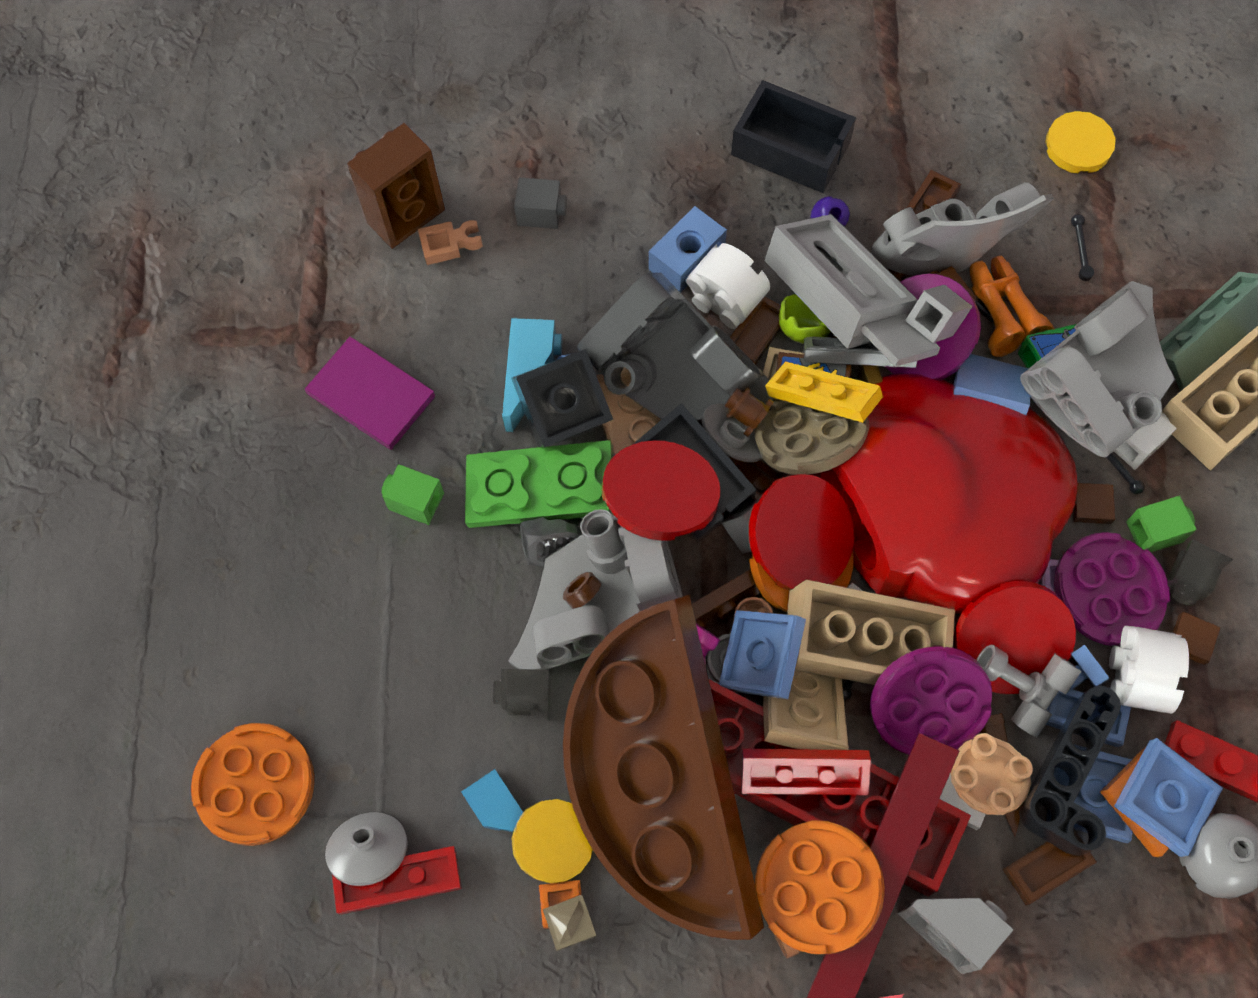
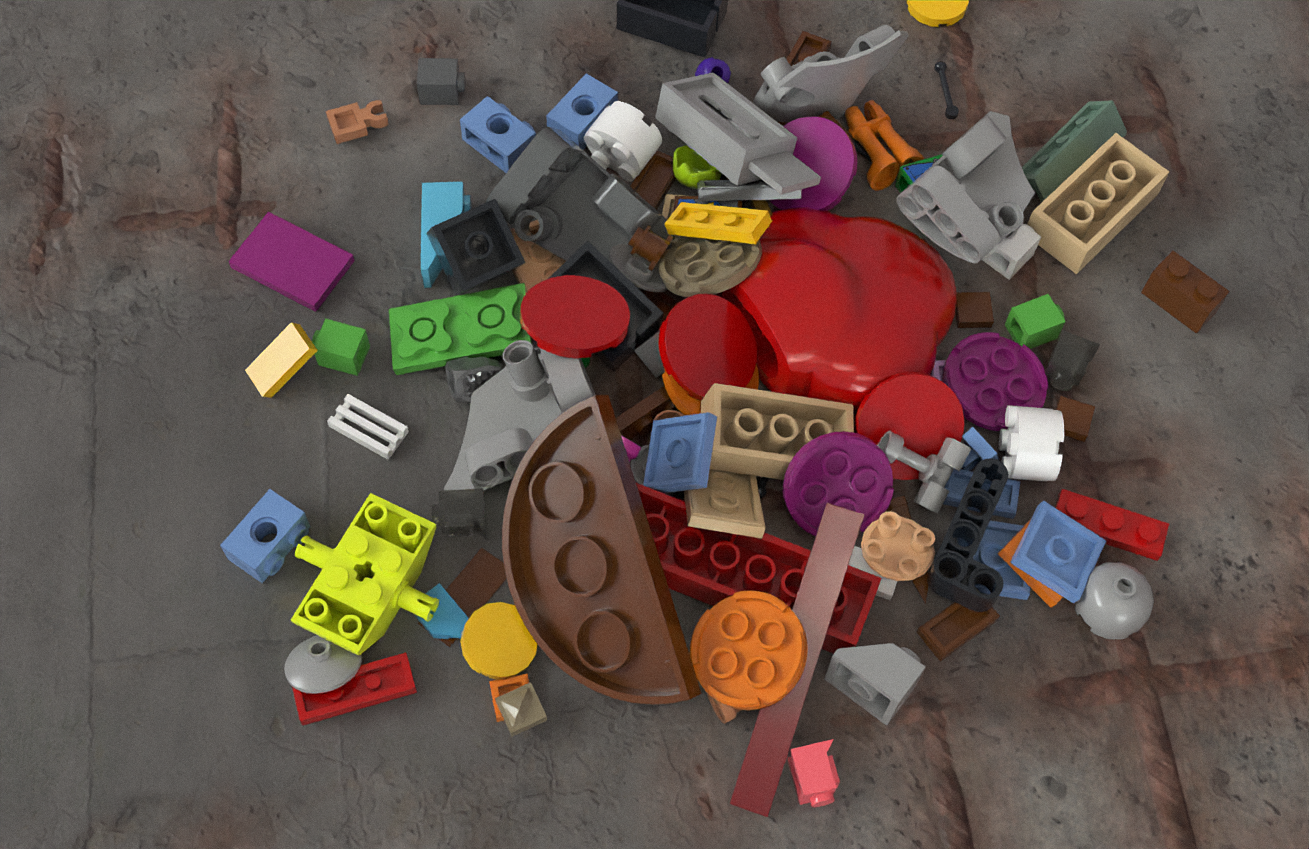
camera: 10 degrees left, 5 degrees down
(253, 784) = (208, 618): orange tile -> none
(322, 678) = (268, 516): none -> medium blue brick
(349, 505) = (281, 360): none -> yellow tile
(397, 185) = (304, 70): reddish brown brick -> none
(410, 566) = (373, 414): none -> white tile
(435, 720) = (378, 544): none -> neon yellow slope
(533, 772) = (476, 584): none -> reddish brown sticker
(581, 590) = (508, 415): reddish brown tile -> none
(600, 284) = (496, 133): none -> medium blue brick
(805, 771) = (727, 550): plate -> none
(938, 313) = (817, 147): light grey brick -> none
(992, 382) = (872, 209): medium blue tile -> none
(1136, 486) = (1010, 292): black hinge -> none

